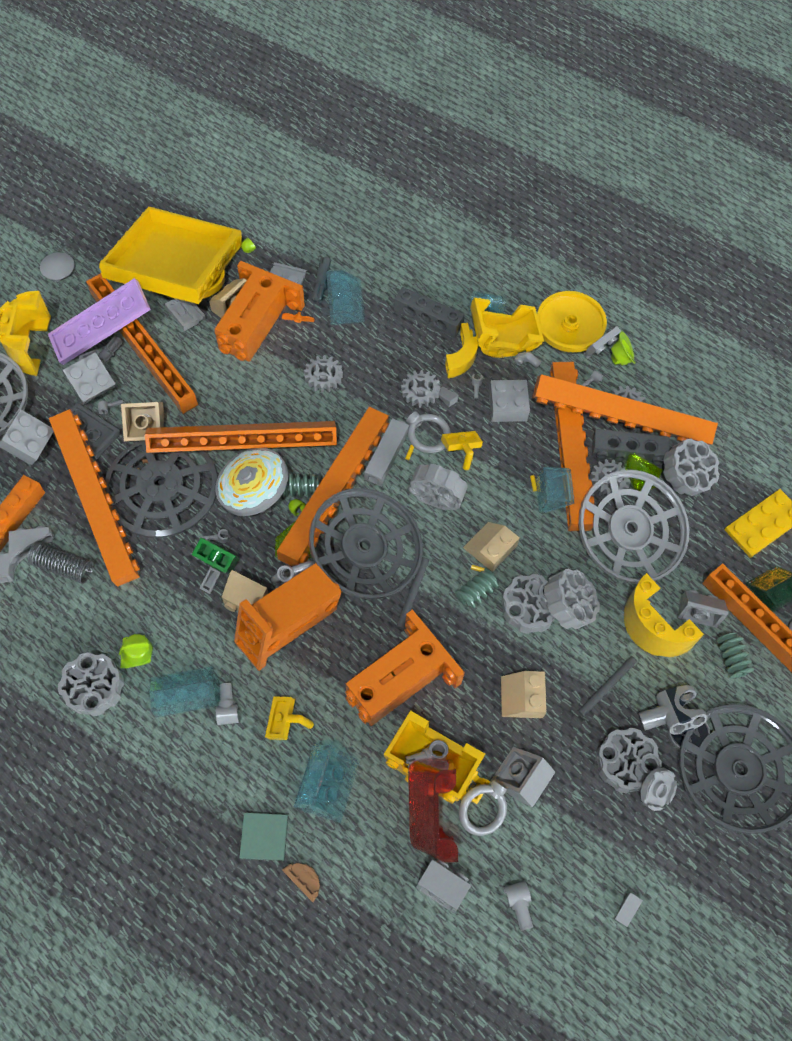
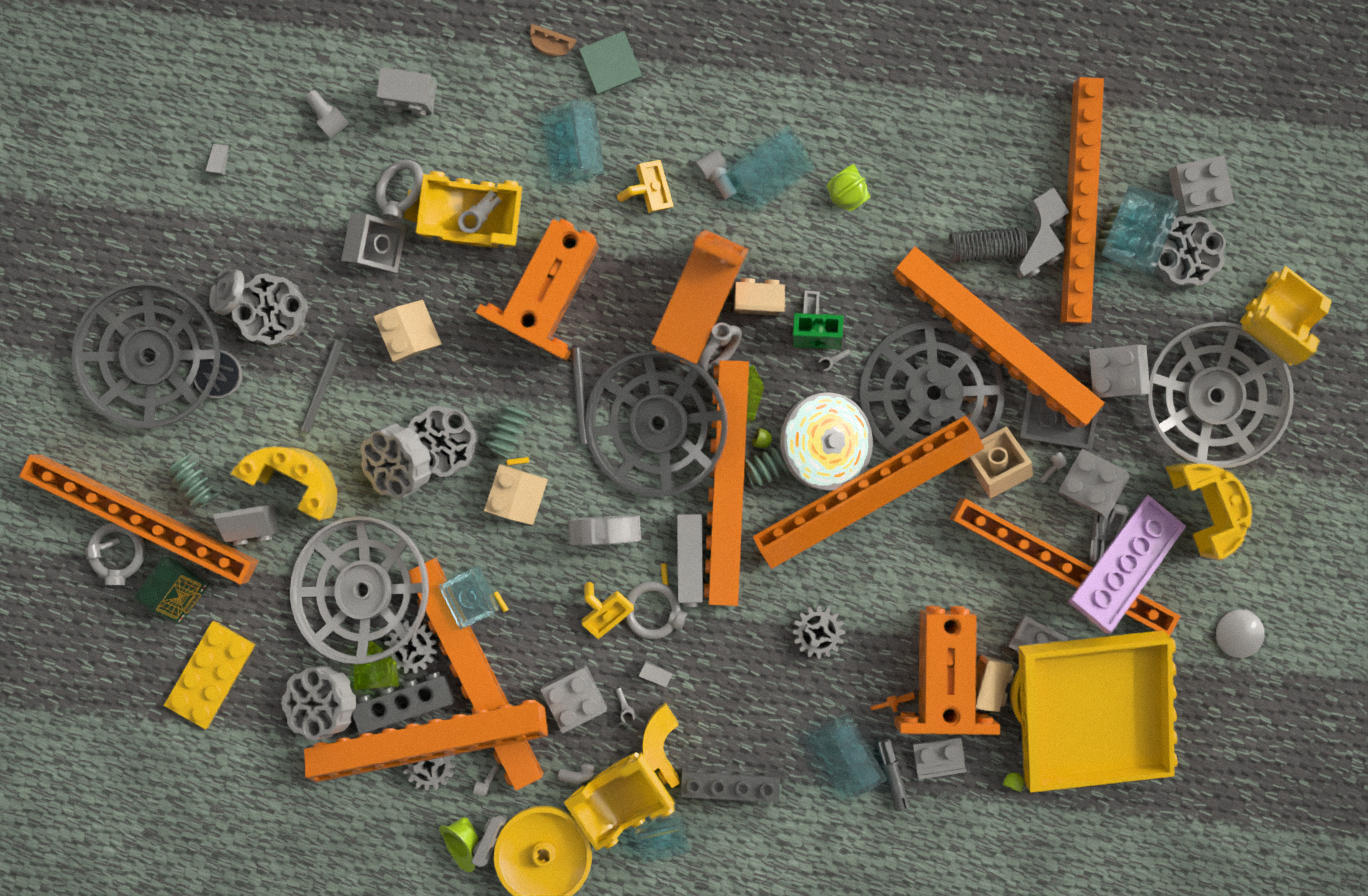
camera: 160 degrees right, 25 degrees up
(81, 695) = (894, 136): light grey connector -> none
(420, 389) = (685, 677): light grey gear -> none
(425, 781) = (459, 174): clear red windscreen -> none
(672, 712) = (241, 381): light grey connector -> none

